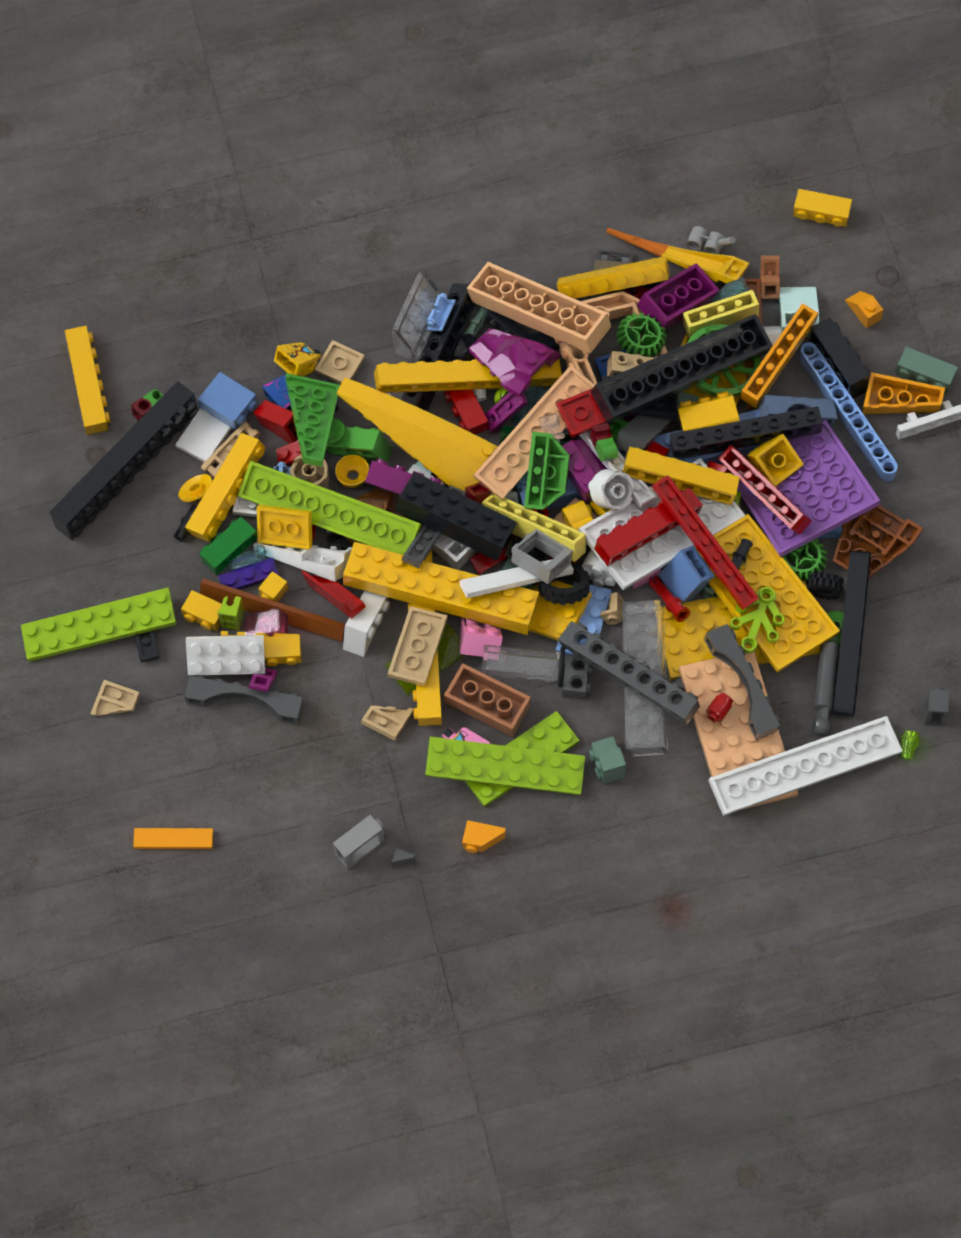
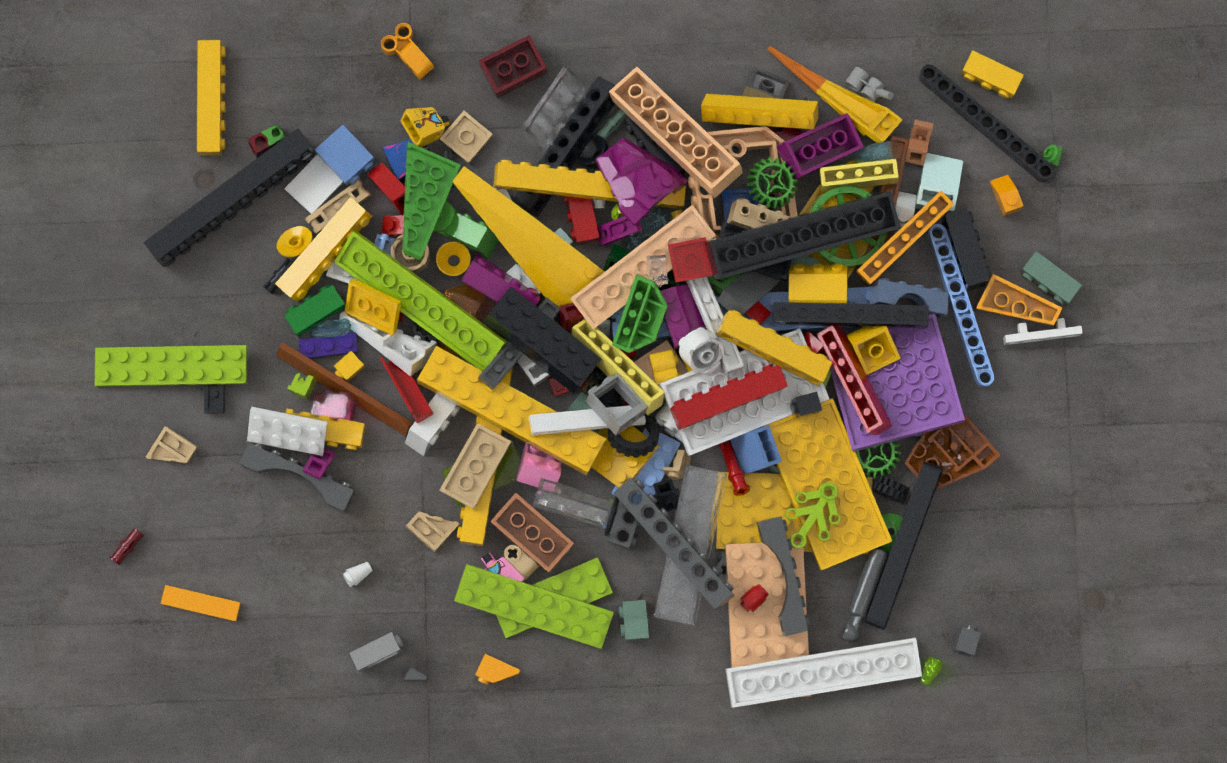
camera: 10 degrees right, 15 degrees up
(88, 800) = (126, 546): none -> dark red pin
(202, 611) = (275, 373): yellow brick -> none
(266, 300) = (408, 51): none -> light orange piece
(322, 777) = (357, 573): none -> white cone
(370, 292) = (513, 66): none -> dark red brick
(439, 316) = (577, 111): light blue hinge -> none
(482, 728) = (523, 563): none -> tan piece
(603, 442) = (705, 297): leg -> none
(611, 633) = (666, 495): none -> black brick
(705, 542) = (780, 428): red plate -> none
(724, 521) = (805, 405): none -> black brick
(740, 554) = (812, 444): black axle -> none
(833, 257) = (988, 132): none -> black beam
(898, 264) = (1053, 154): none -> bright green plate

